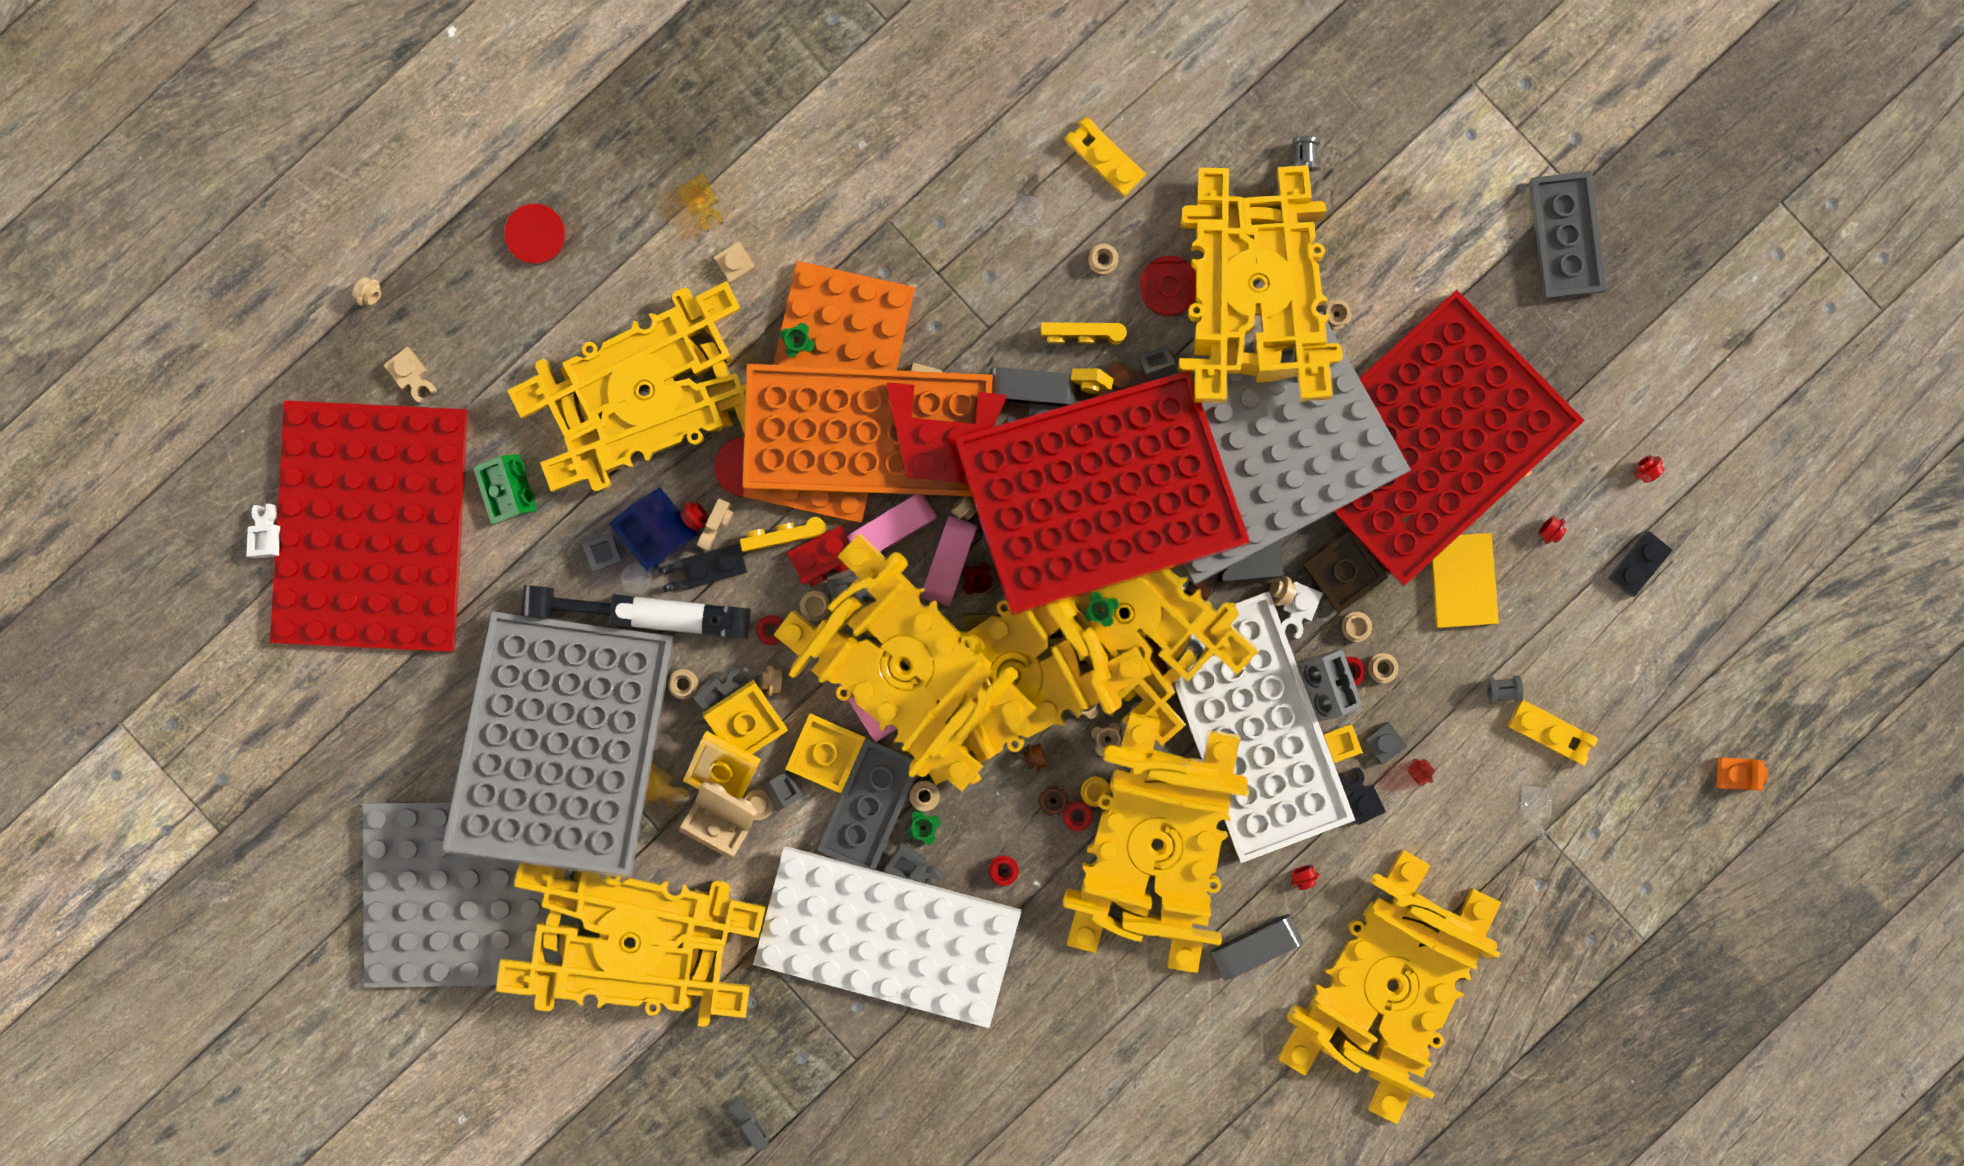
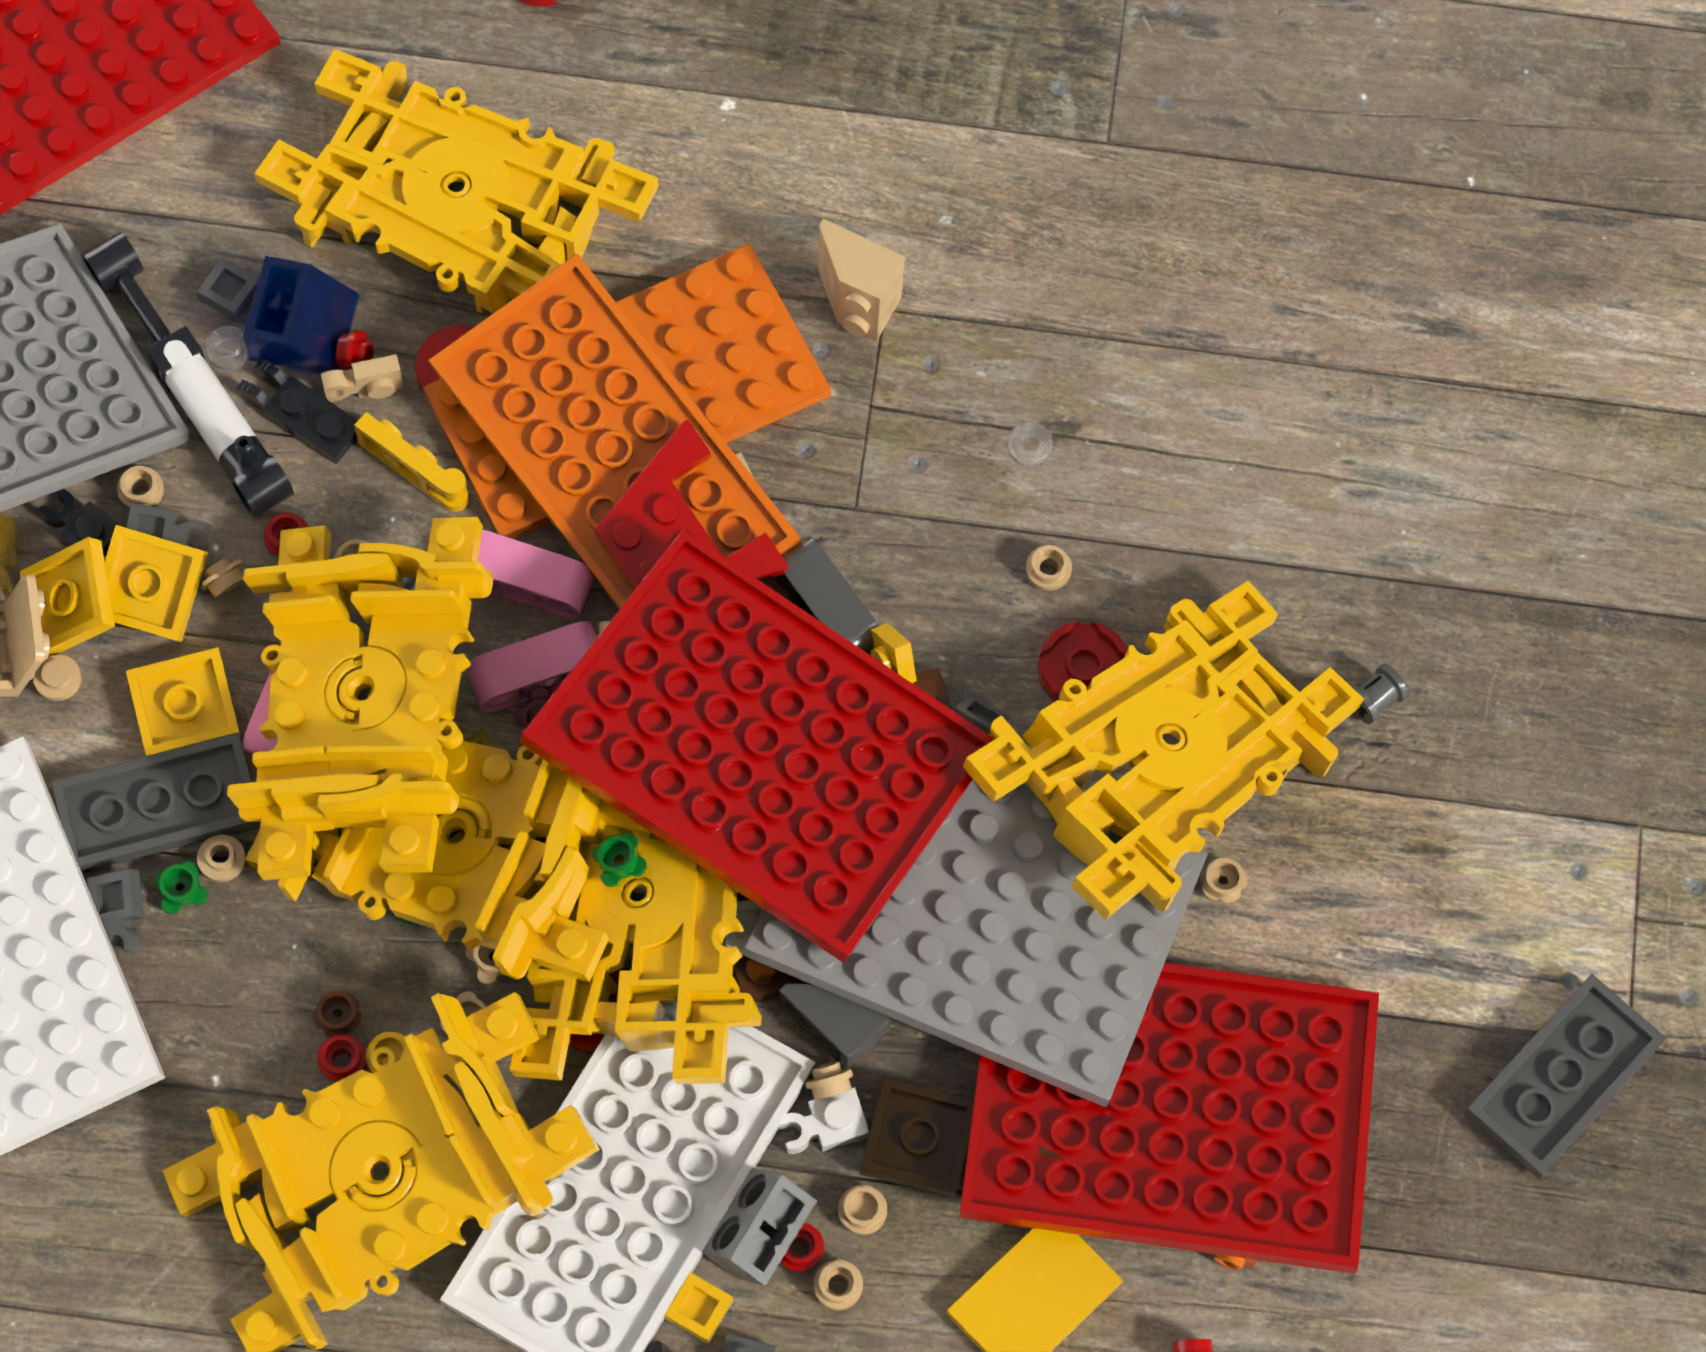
camera: 50 degrees right, 20 degrees down
(505, 488) = (221, 137): green bracket -> none
(685, 728) = (81, 523): none -> black plate
(699, 199) = (727, 96): clear yellow plate -> none
(734, 262) = (690, 185): tan plate -> none
(782, 791) = (96, 689): dark grey plate -> none
(801, 332) = (656, 291): green plate -> none
(820, 557) = (408, 517): red bracket -> none
(870, 225) = (859, 279): none -> tan slope
(1003, 880) = (199, 1009): red plate -> none
(1035, 757) = (376, 950): reddish brown plate -> none
(1083, 332) = (941, 607): yellow plate -> none
(1105, 157) = (1168, 482): yellow plate -> none

